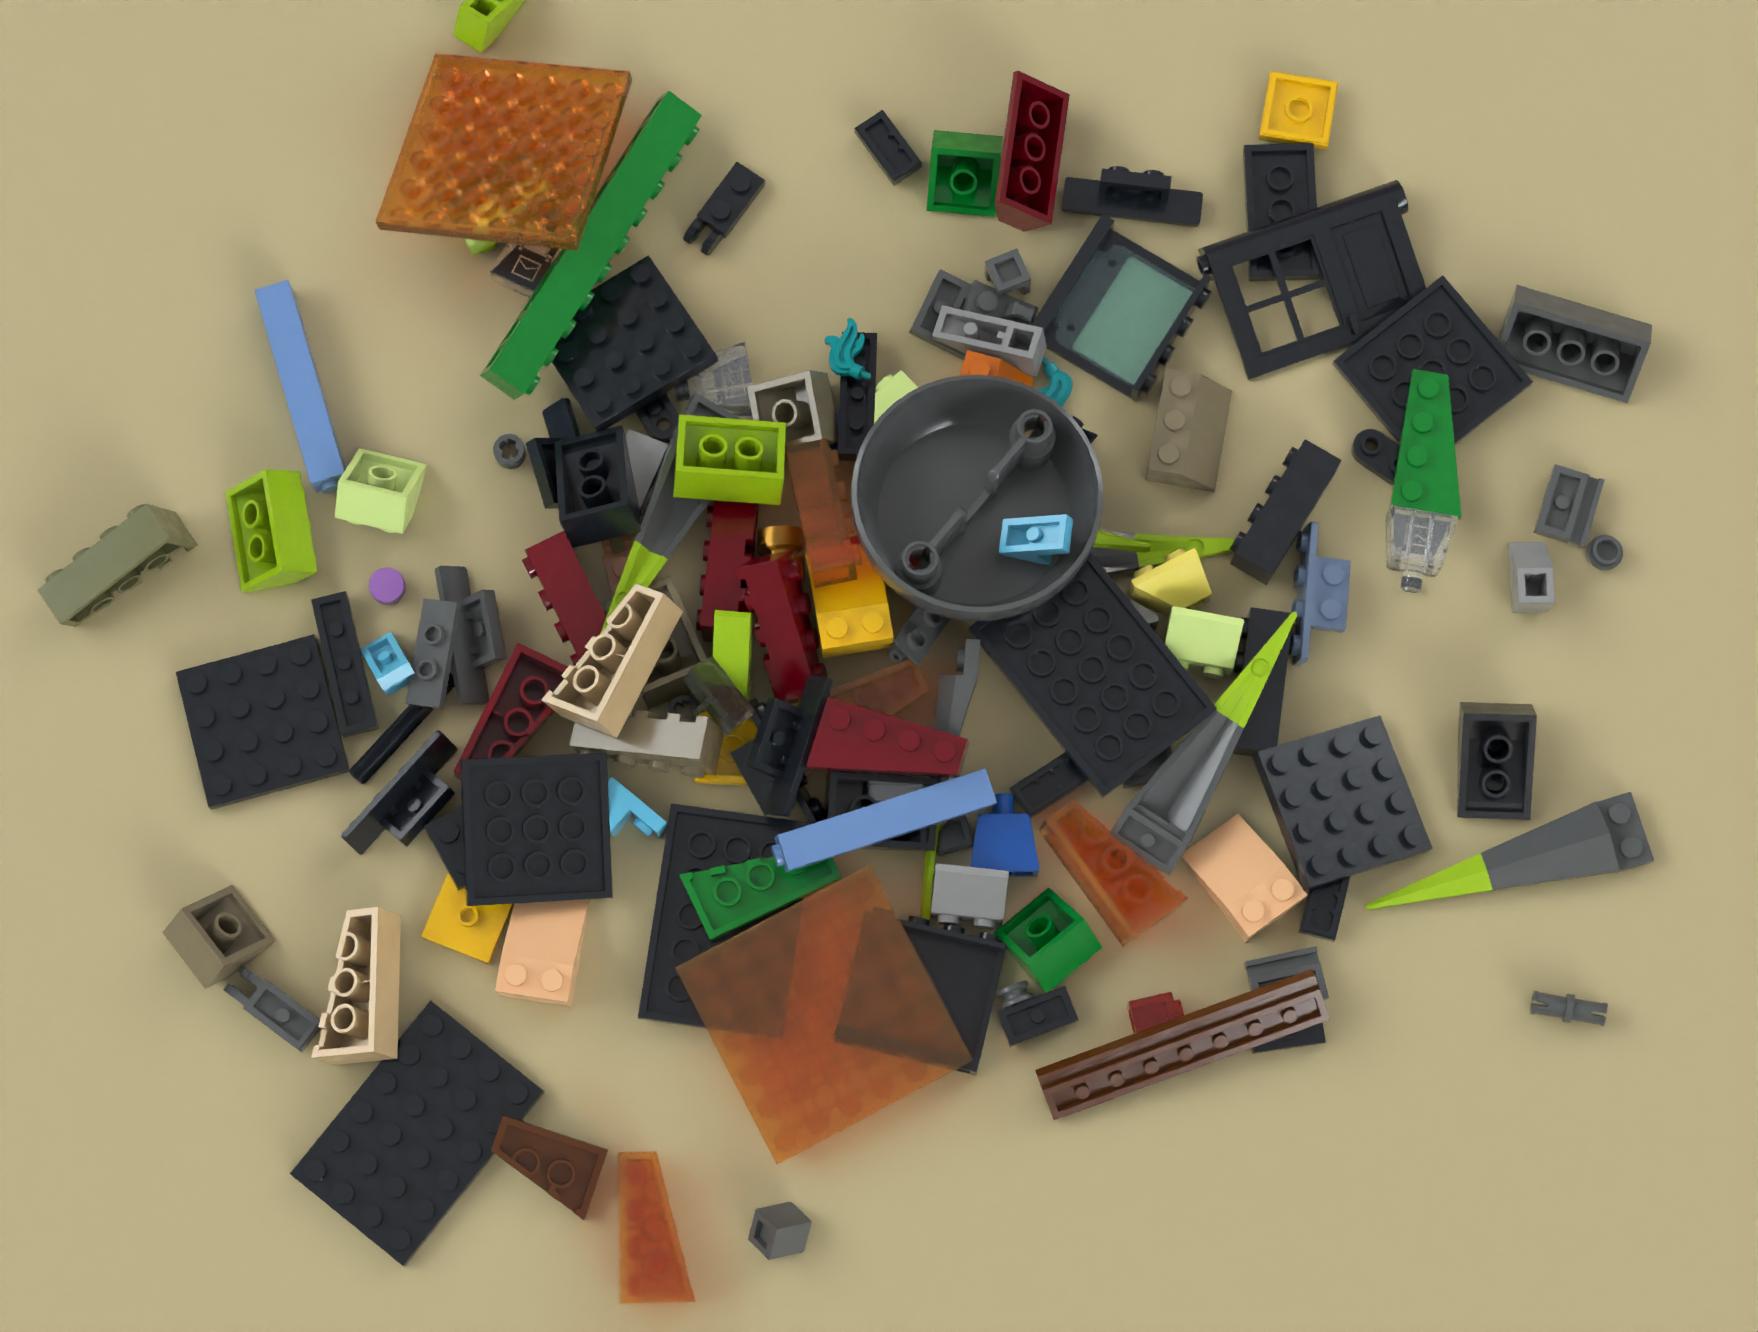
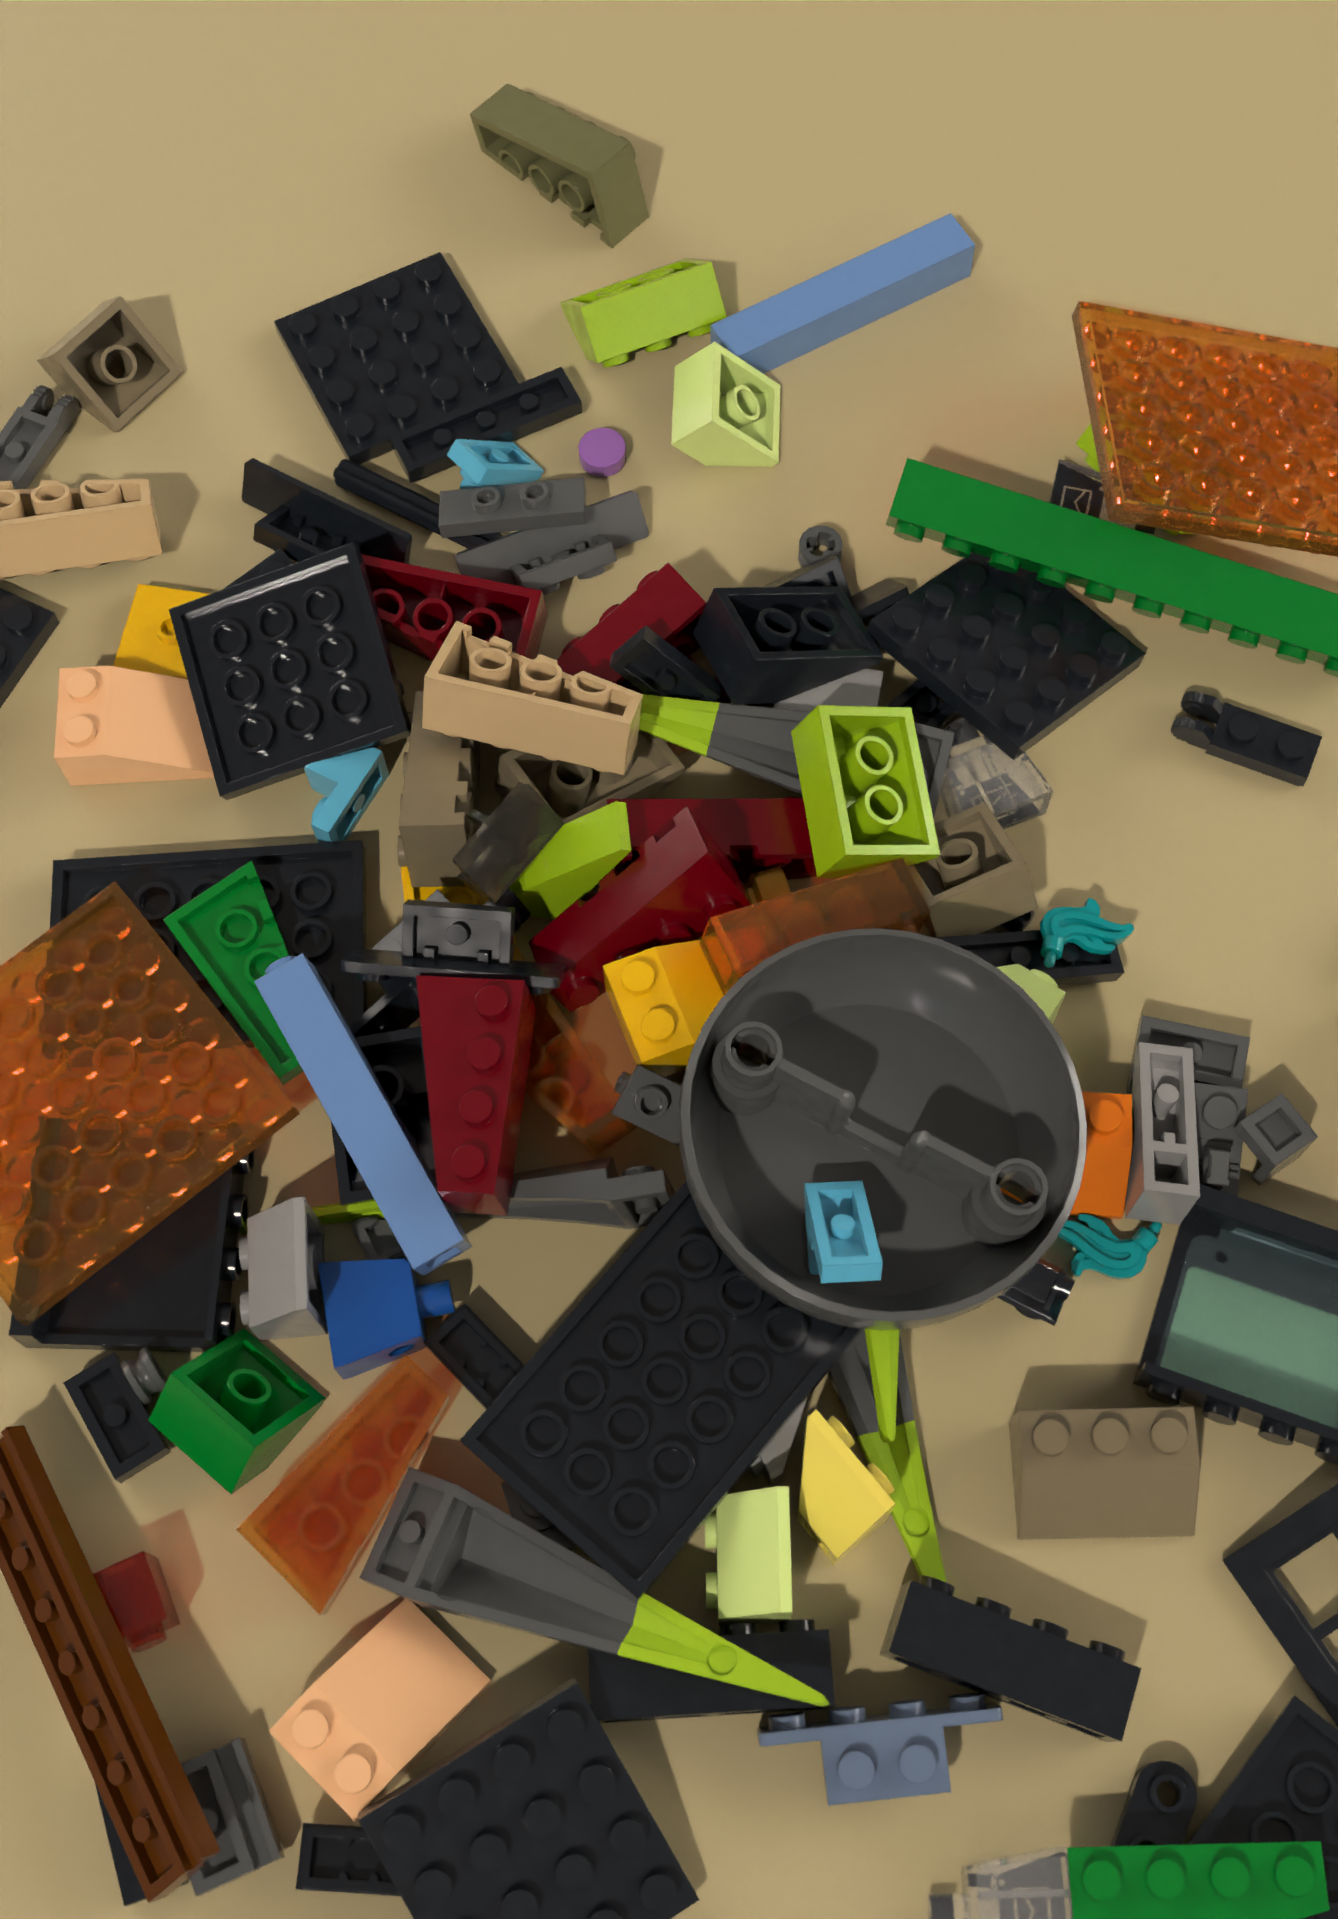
camera: 80 degrees right, 10 degrees down
(606, 570) = (662, 669): none -> black plate

